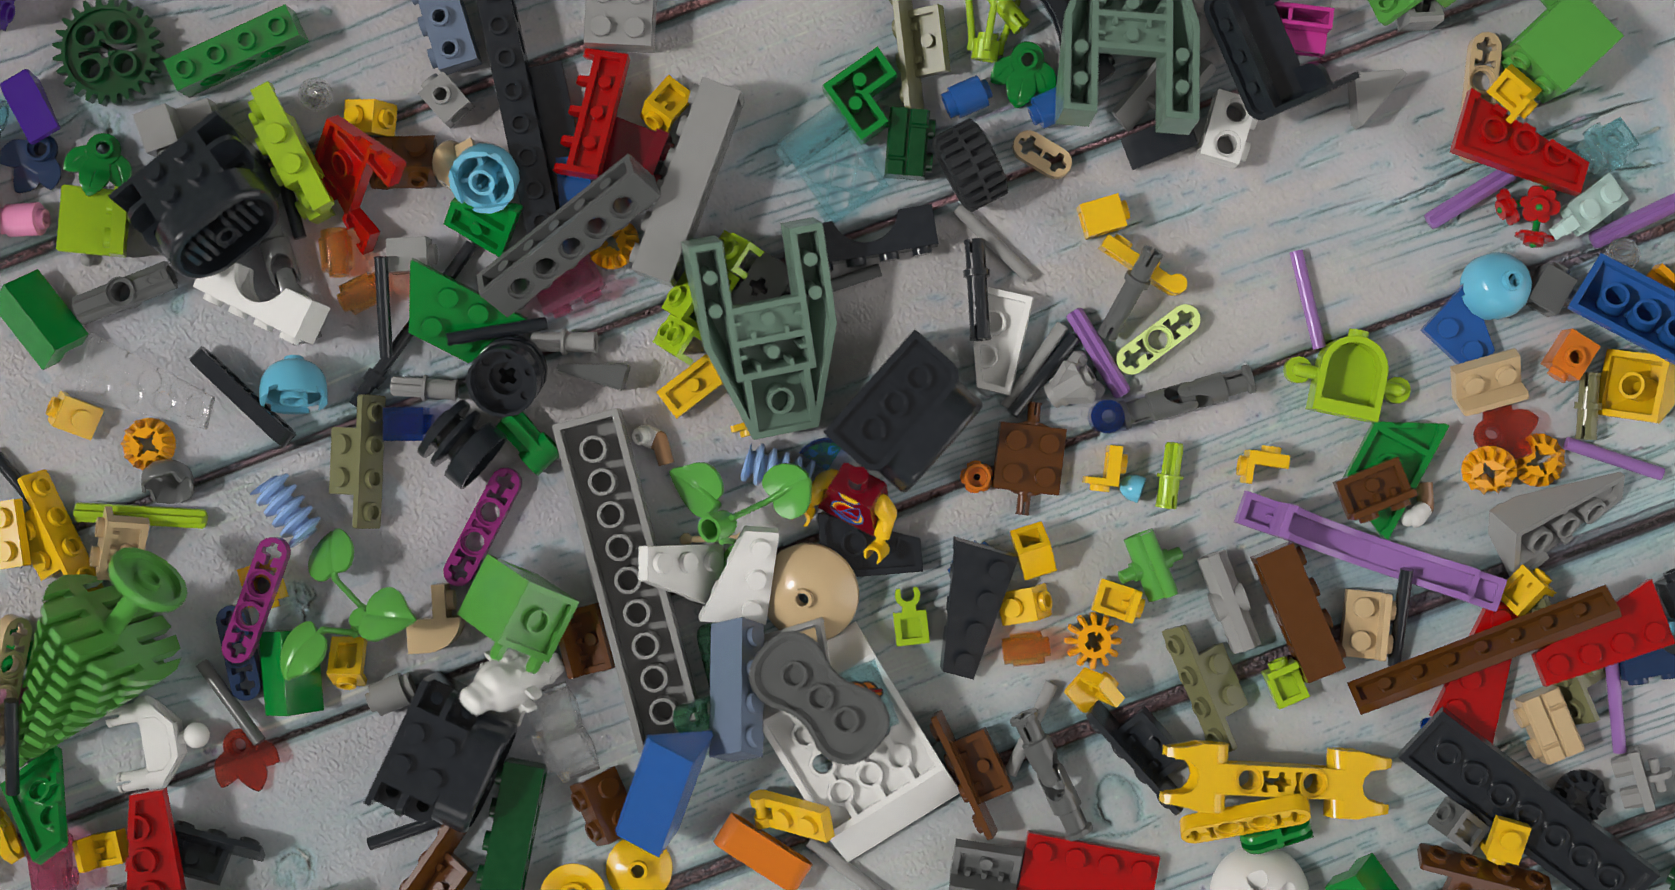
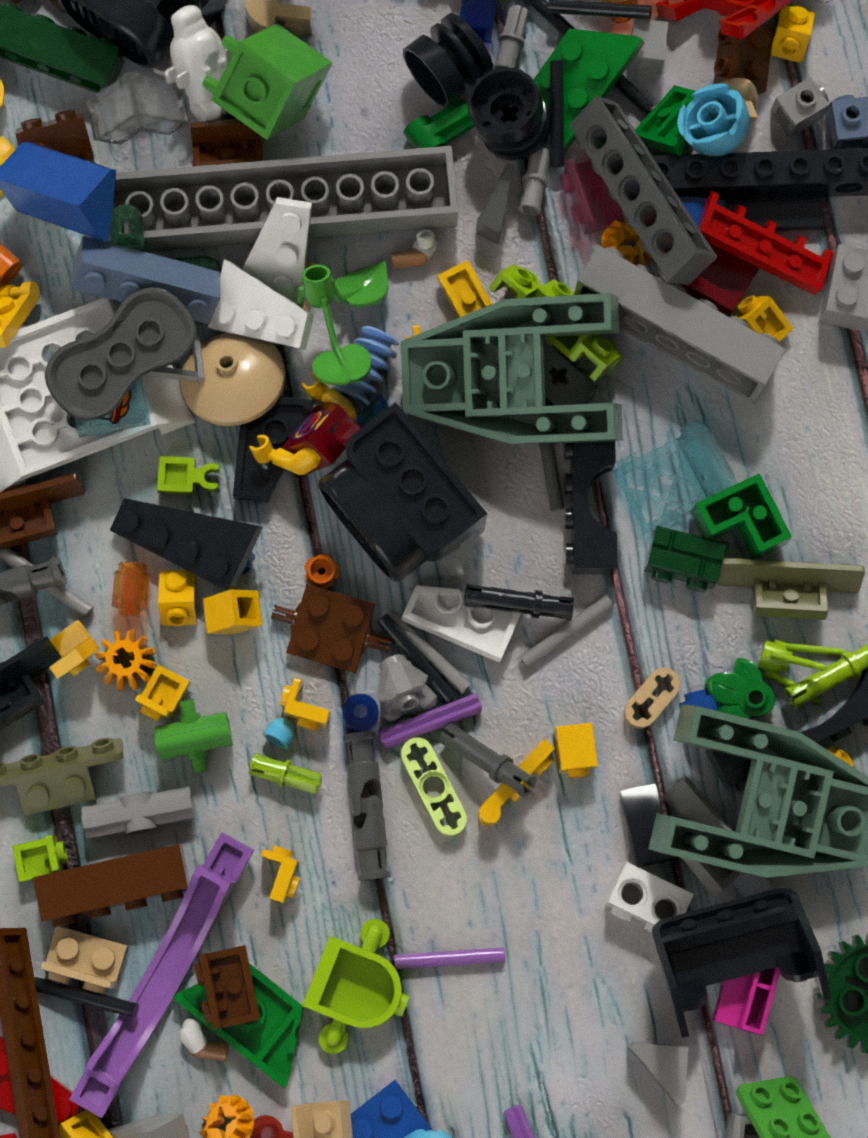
camera: 95 degrees right, 10 degrees down
(478, 524) = (366, 67): magenta beam -> none
(966, 97) = (724, 627): blue brick -> none
(970, 165) = (651, 612): black tyre -> none

